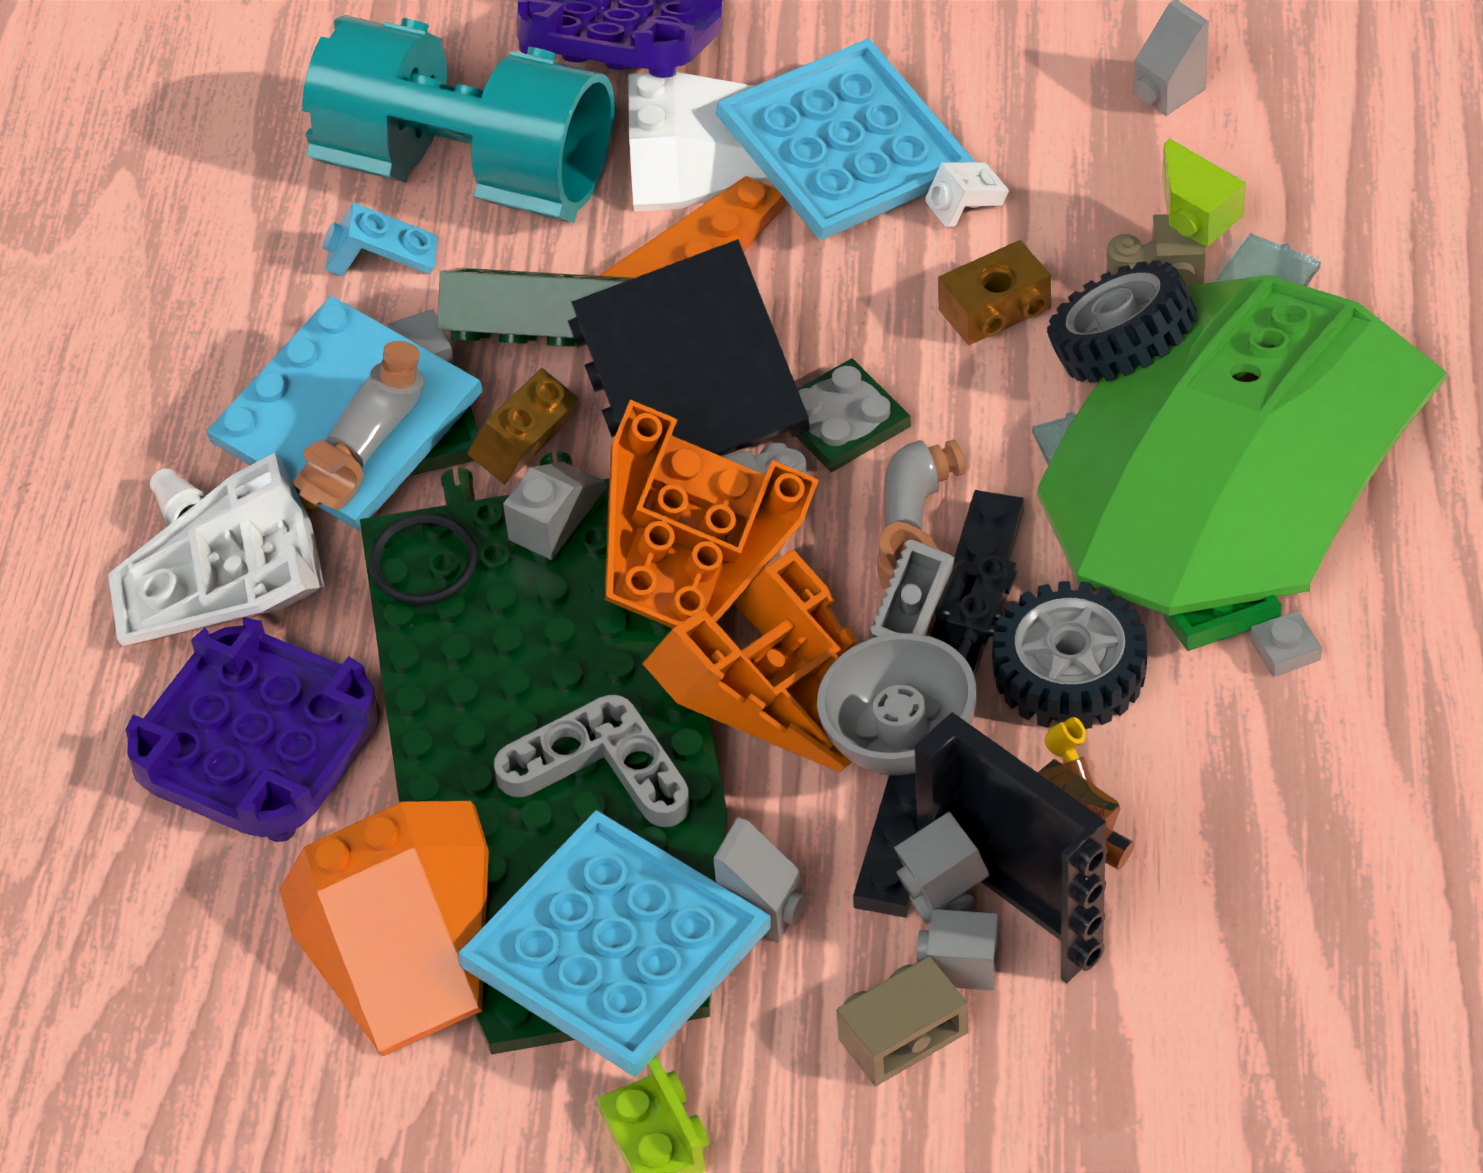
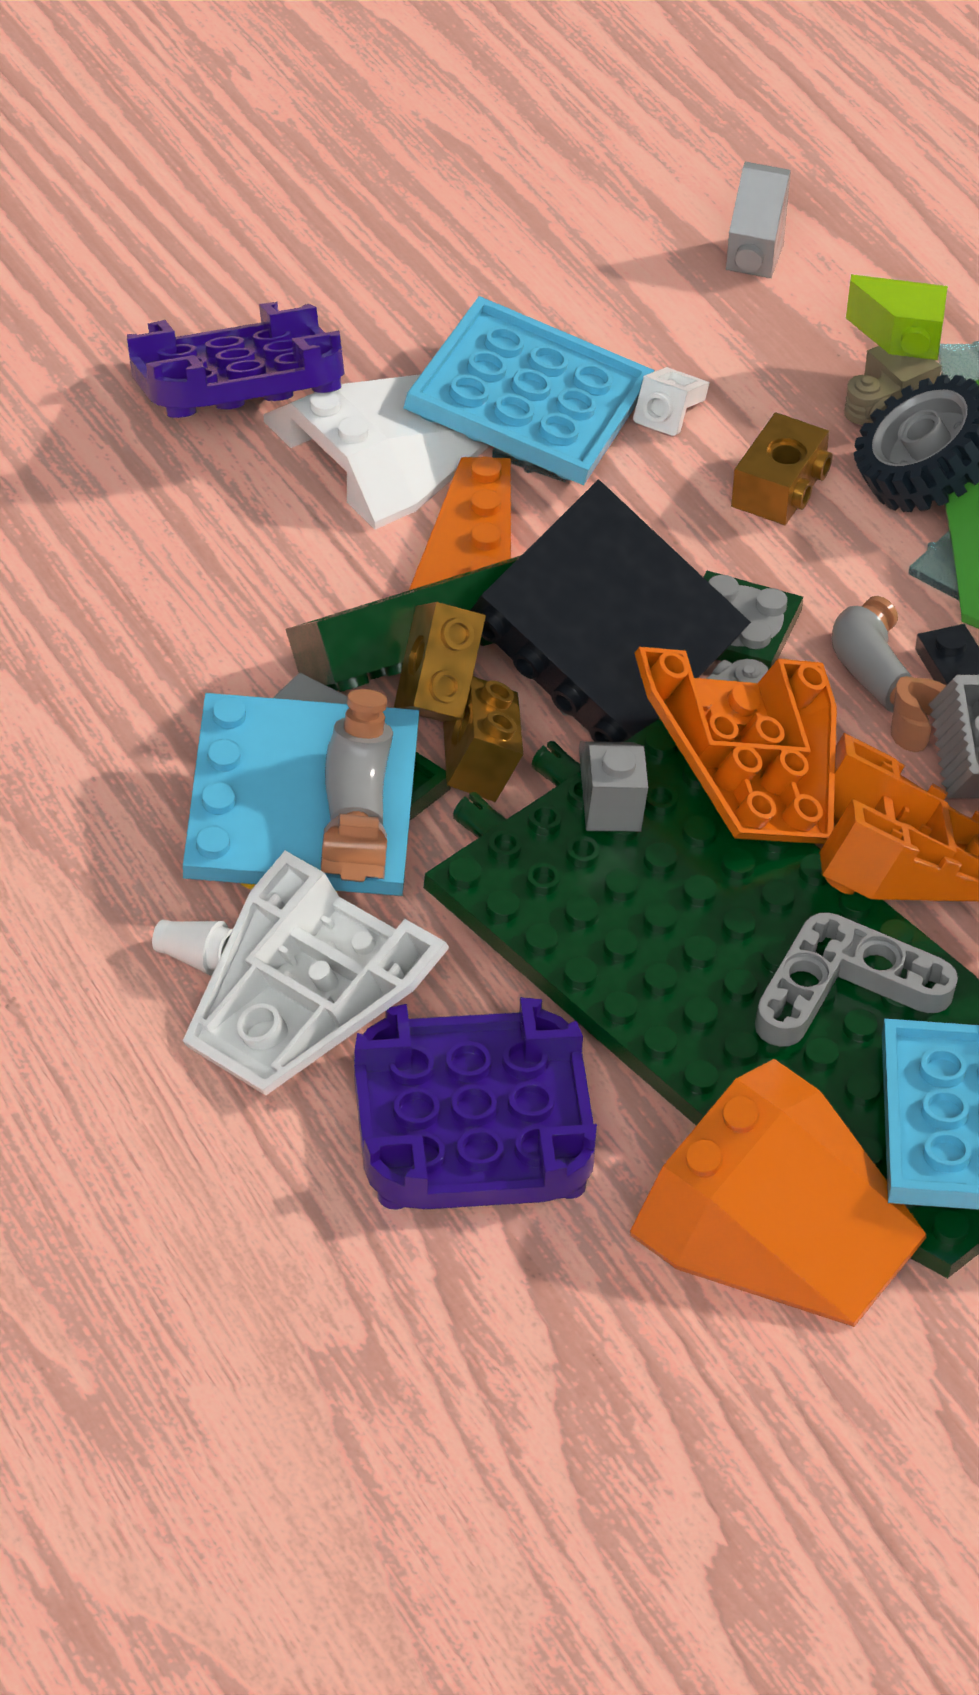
camera: 40 degrees left, 5 degrees down
(381, 235) = (152, 635): medium azure bracket -> none
(390, 531) = (520, 918): black tyre -> none
(520, 344) = (439, 661): none -> pearl gold brick
(533, 131) = (257, 478): teal cylinder -> none

